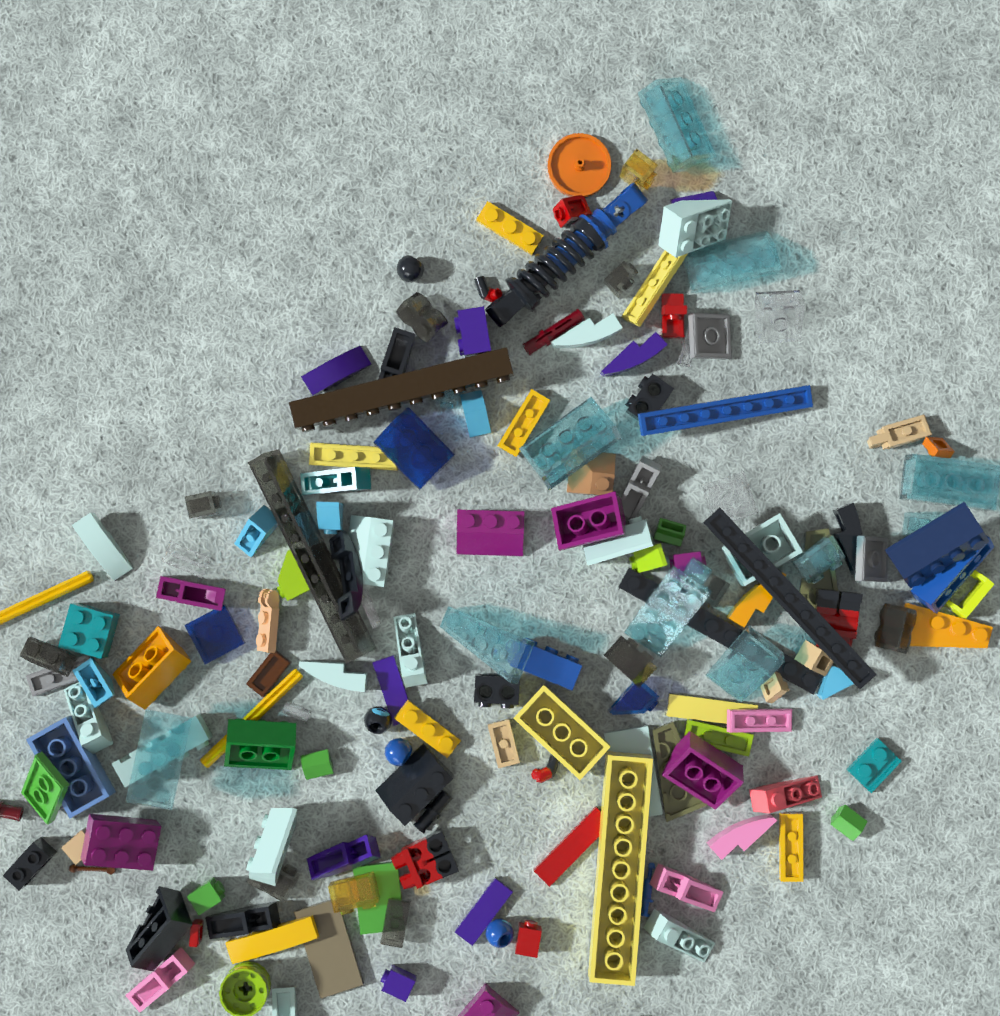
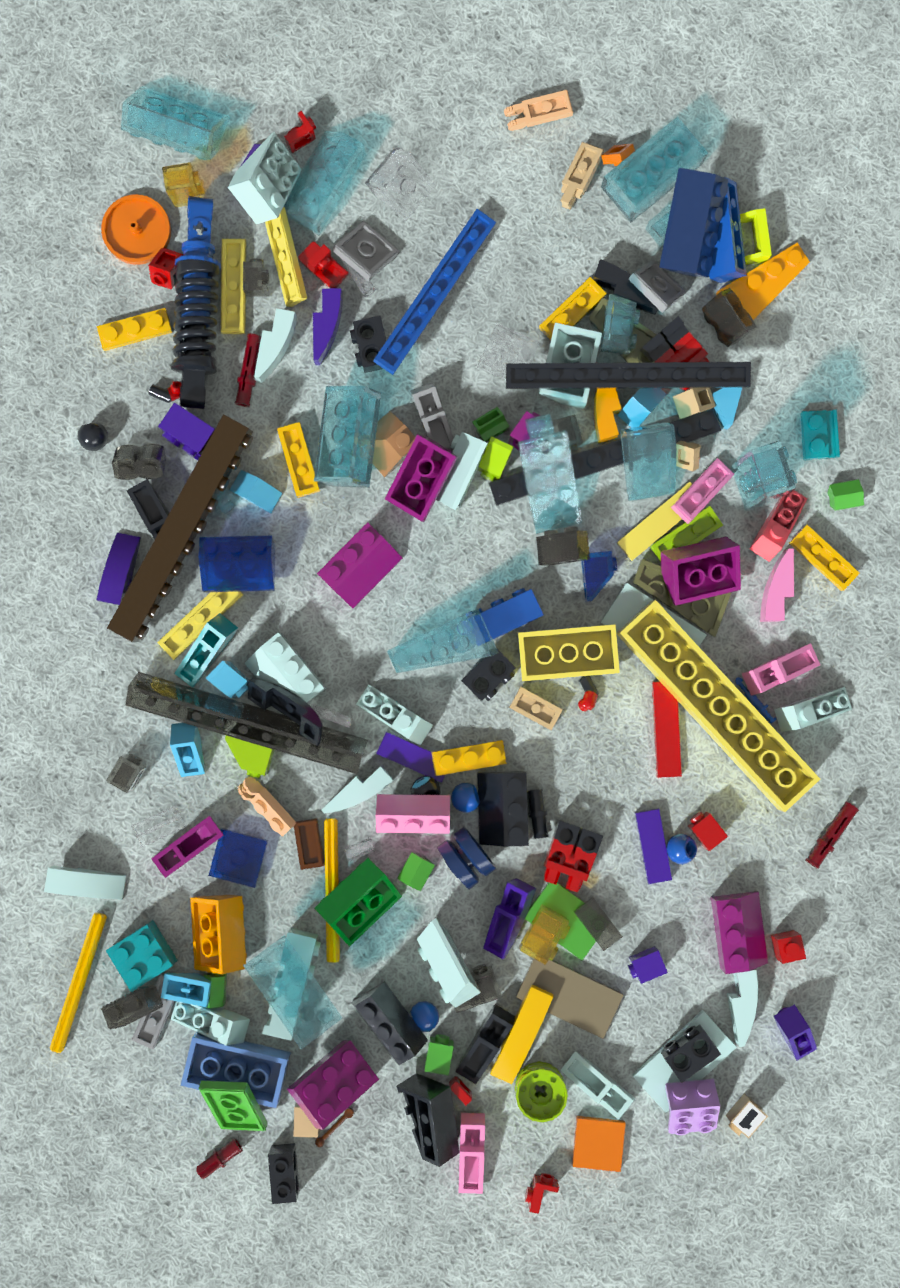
camera: 45 degrees left, 0 degrees up
(113, 703) = (218, 990): none -> bright green piece
(197, 843) = (390, 1023): none -> black slope
(224, 861) = (425, 1015): none -> blue piece
(354, 727) = (413, 813): none -> bright pink slope
(354, 790) = (464, 859): none -> dark blue wheel
(601, 267) = (232, 294): none -> light yellow tile
(746, 218) = (301, 136): none -> red bracket
(778, 624) = (641, 406): none -> medium azure slope
(803, 515) = (574, 307): none -> yellow plate
(806, 756) = (763, 475): none -> clear light blue brick
(919, 365) = (540, 110): none -> light nougat hinge

